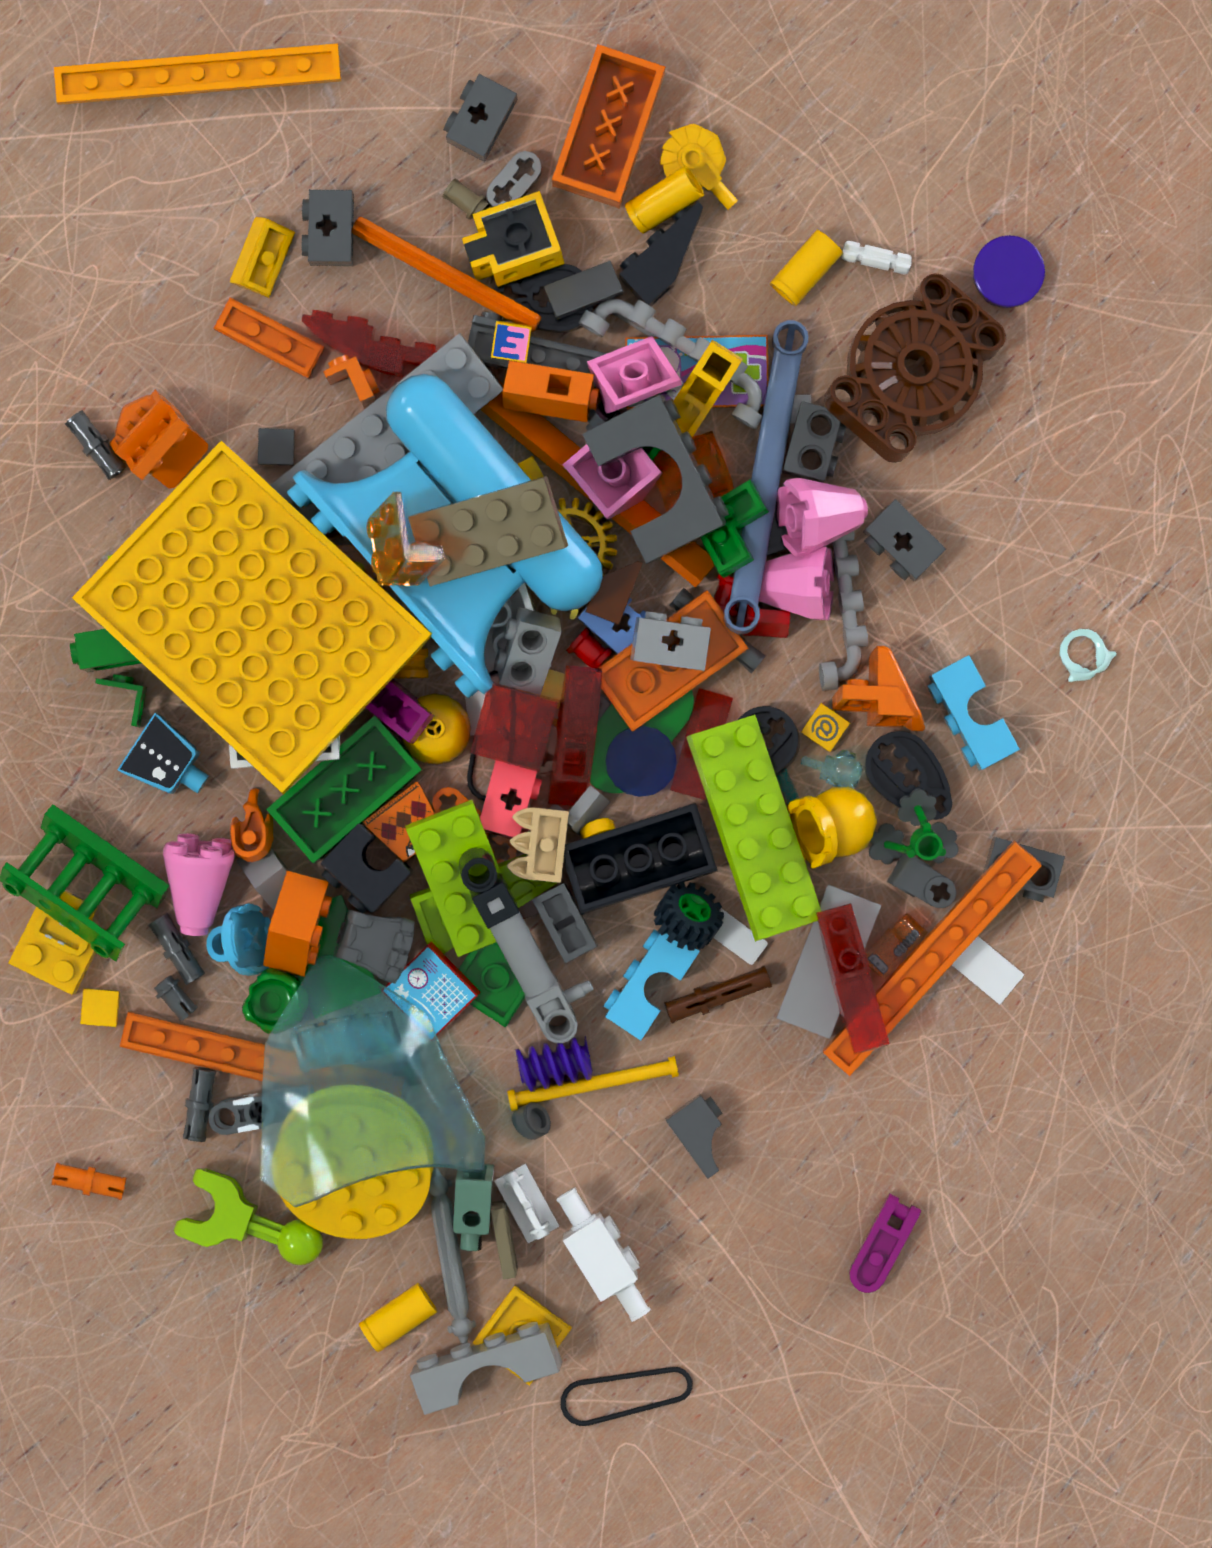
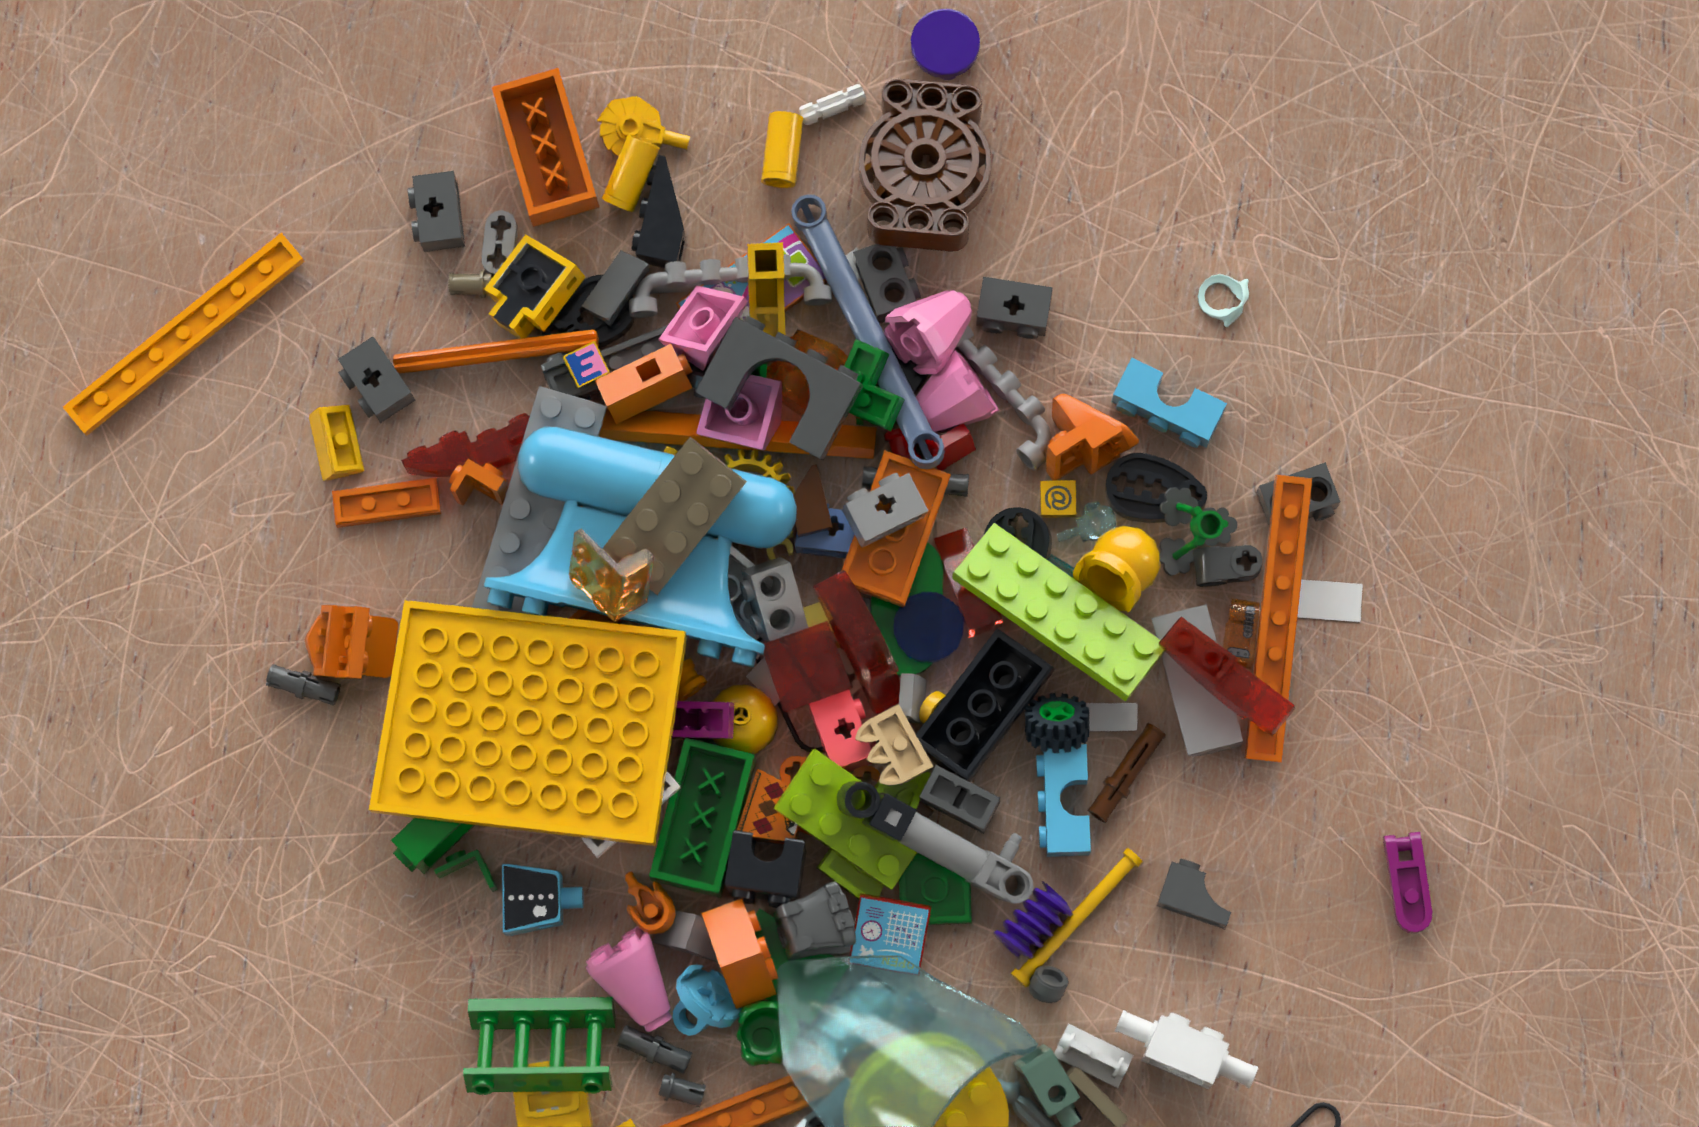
camera: 30 degrees left, 10 degrees down
(276, 446) = (453, 584): dark grey tile -> none
(589, 650) = (821, 567): red bush -> none

